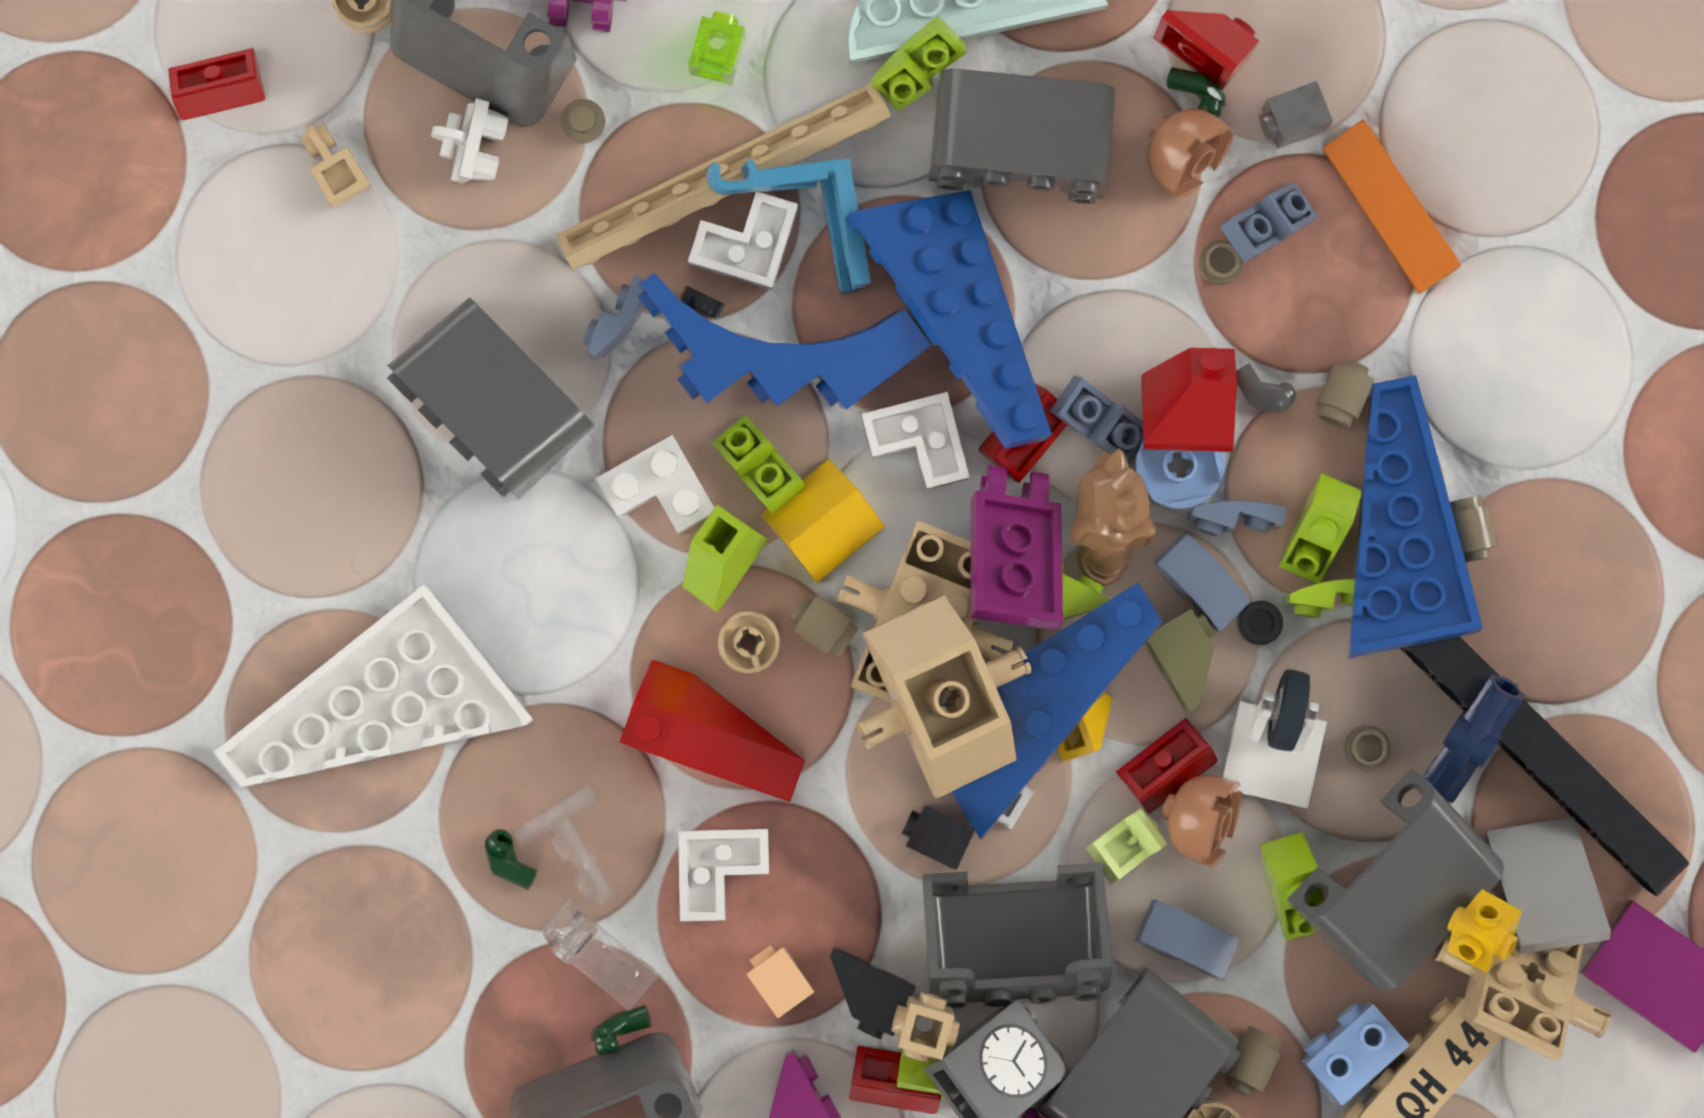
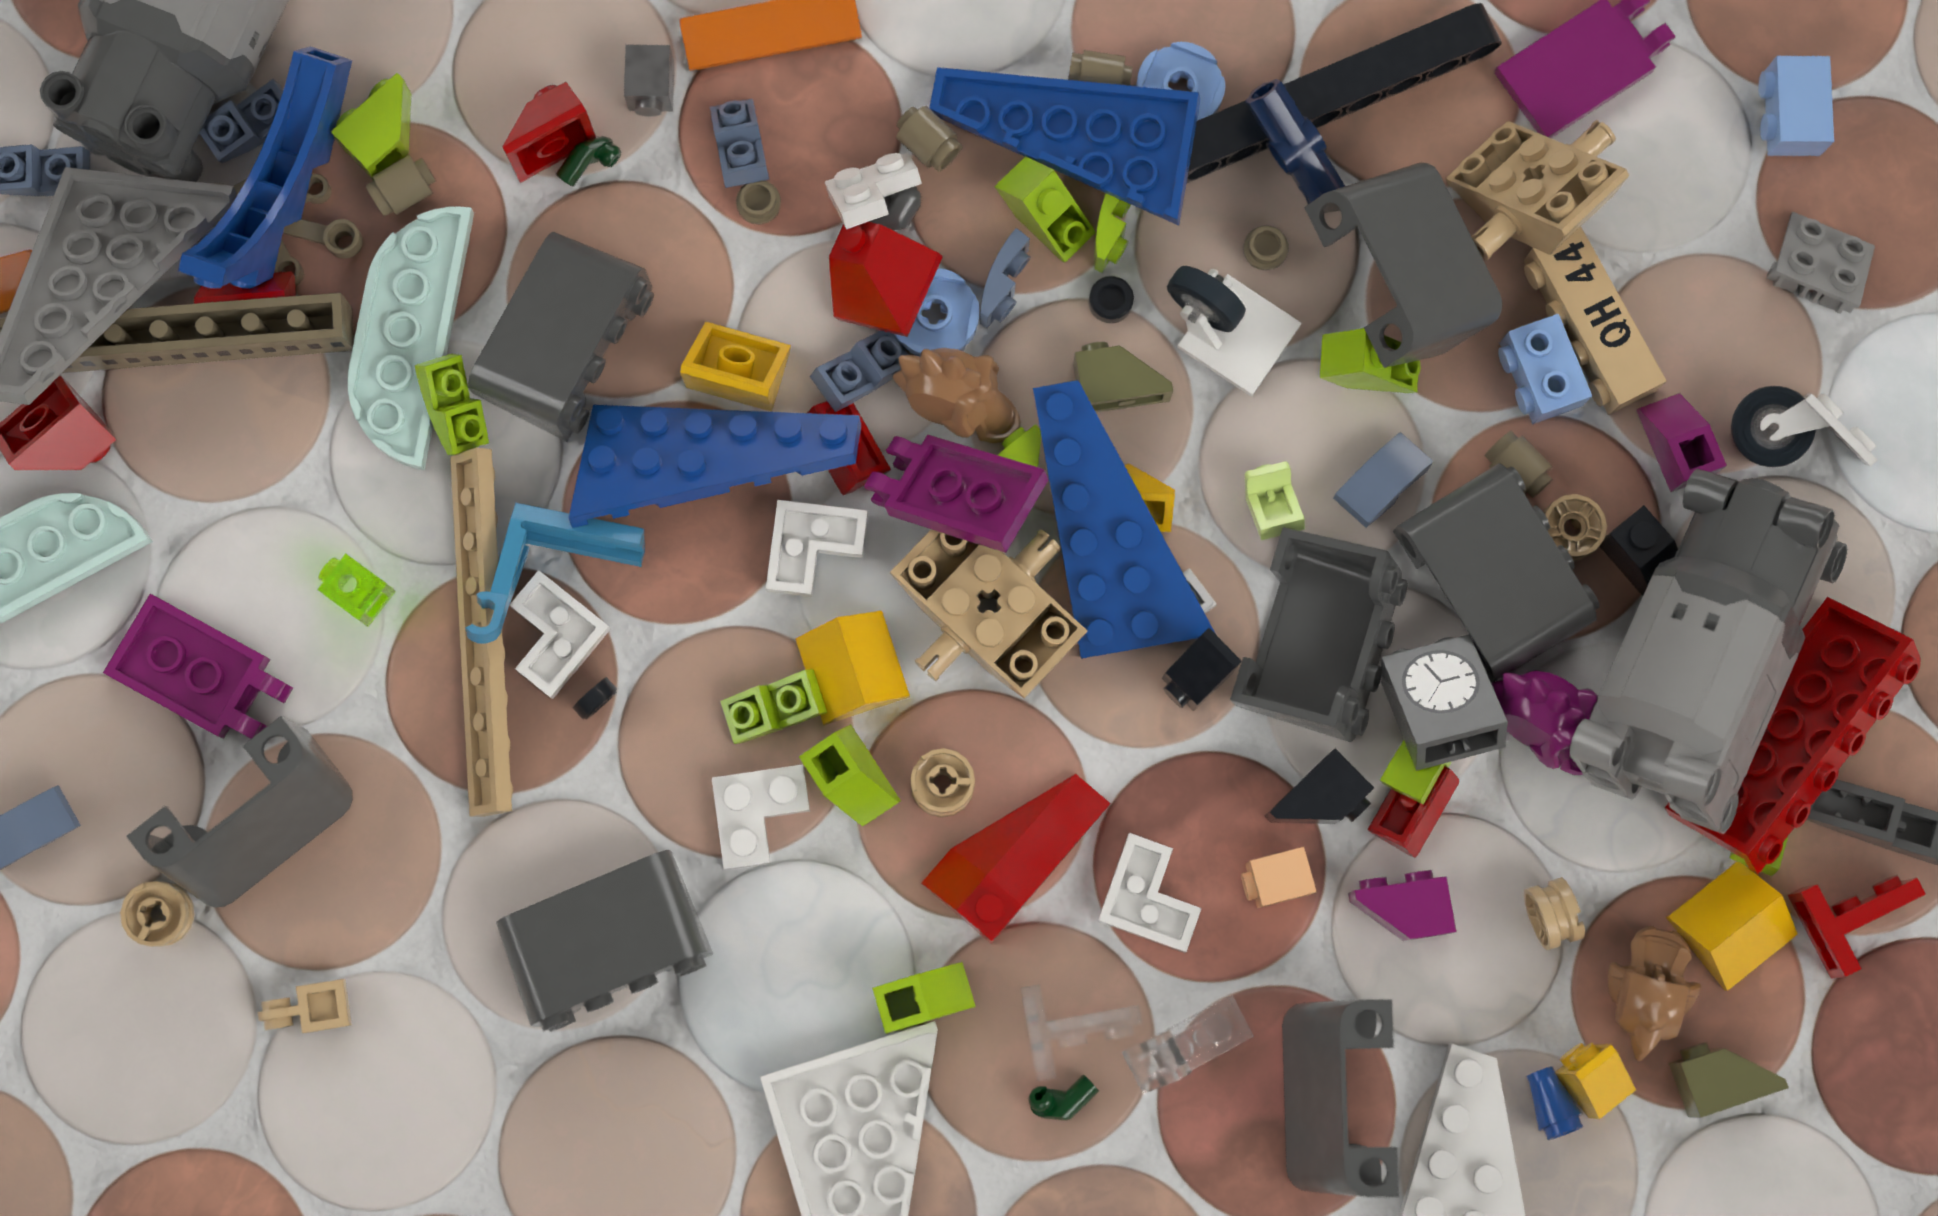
camera: 70 degrees left, 5 degrees down
(216, 84) = (177, 1096): red slope -> none
(477, 123) = (343, 868): white hips -> none
(548, 701) = (923, 997): none -> lime slope
(583, 121) = (369, 746): dark tan plate -> none
(610, 329) = (585, 797): sand blue slope -> none
(619, 1024) = (1262, 1053): dark green arm -> none
(719, 357) = (657, 699): blue arch -> none
(823, 625) = (954, 703): dark tan brick -> none
(917, 660) = (1027, 614): tan slope -> none
(926, 1044) = (1394, 750): tan brick -> none
(1059, 304) = (735, 366): none -> yellow slope
(1167, 765) = (1211, 436): red slope -> none
(1185, 147) = (637, 188): nougat cylinder -> none
(1202, 817) = (1274, 420): nougat cylinder -> none
(1203, 581) = (1049, 334): sand blue slope -> none
(1268, 350) = (861, 192): none -> white plate
(1482, 939) = (1481, 199): yellow brick -> none
(1517, 603) = (1187, 62): none -> light blue plate
(1550, 884) = (1458, 131): light grey tile -> none

